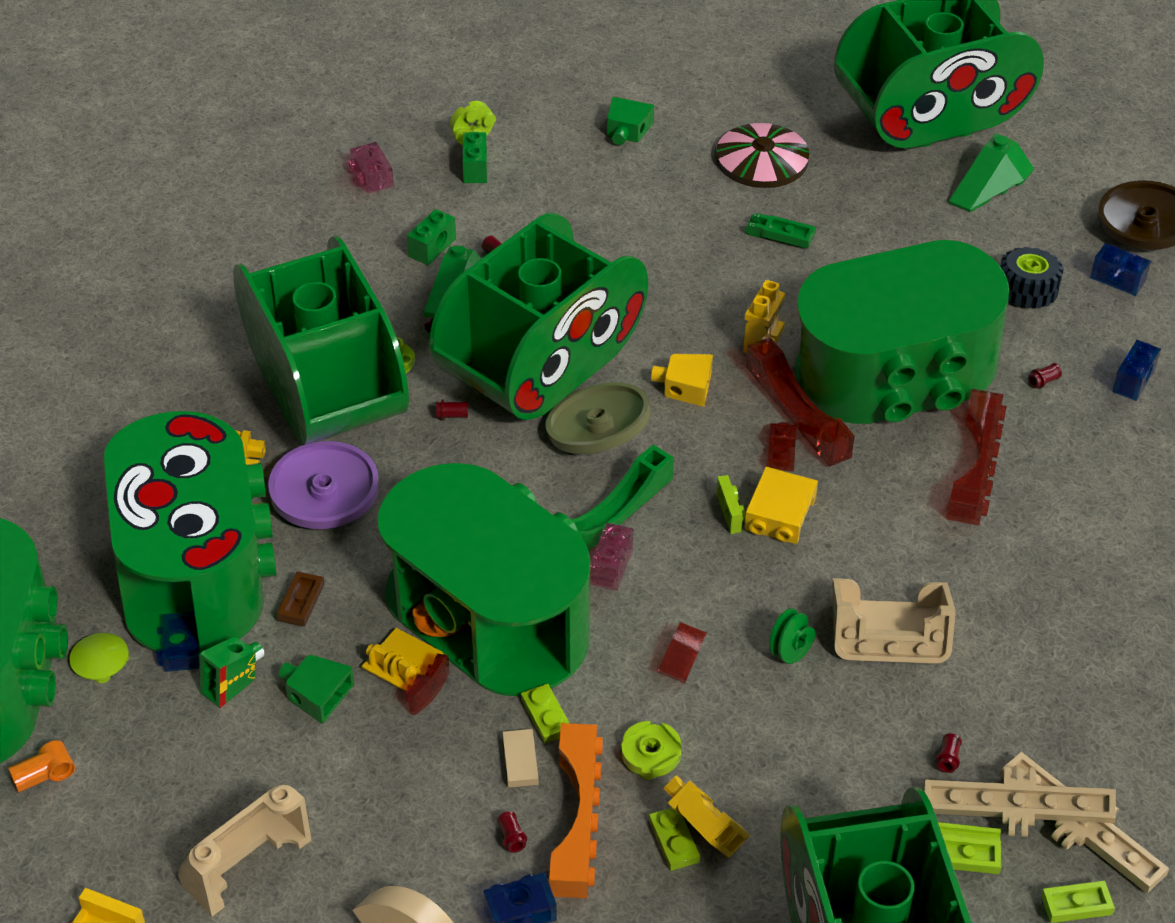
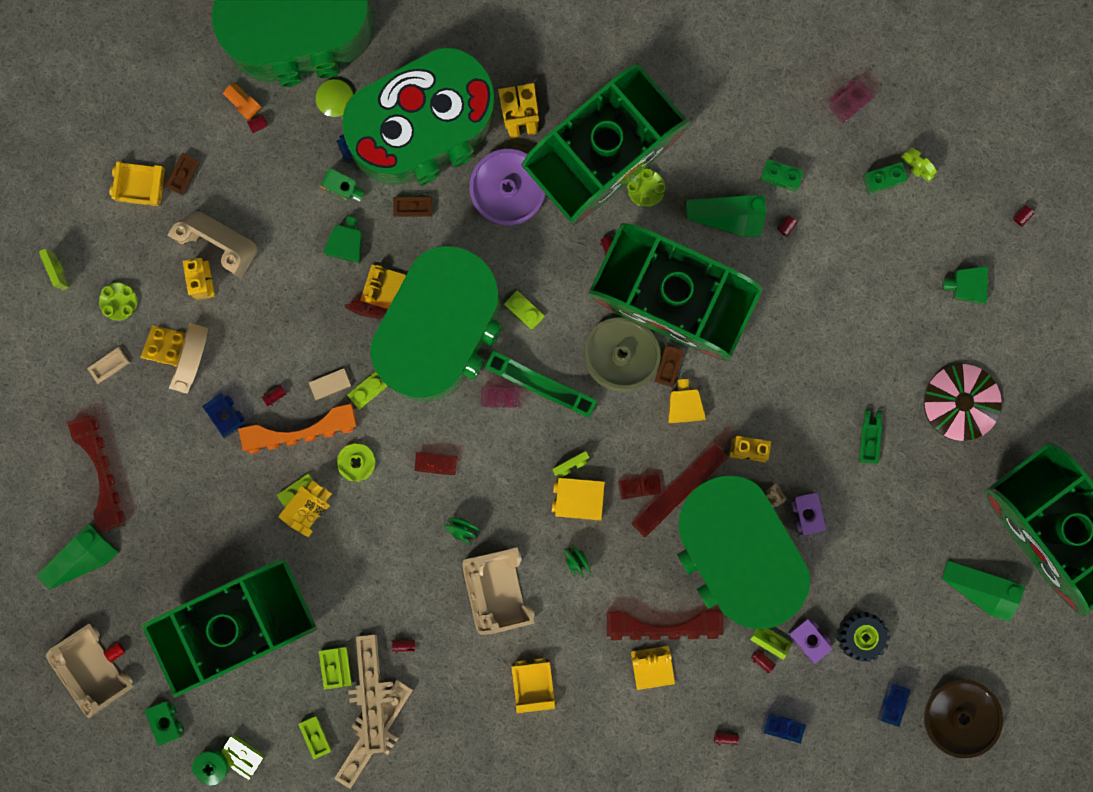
camera: 80 degrees right, 40 degrees up
(85, 757) = (257, 123): none -> dark red hinge
(111, 873) = (182, 174): none -> reddish brown plate
(288, 875) = (196, 273): none -> yellow hips
(565, 71) = (1023, 215): none -> dark red hinge
(623, 375) = (669, 366): none -> reddish brown plate
(868, 520) = (576, 560): none -> green piece
(1022, 359) = (772, 642): none -> lime plate
(1028, 326) = (819, 648): none -> medium lavender brick
(1033, 482) = (652, 667): none -> yellow hinge
(1038, 614) = (533, 685): none -> yellow panel
(1142, 433) = (726, 738): none -> dark red pin

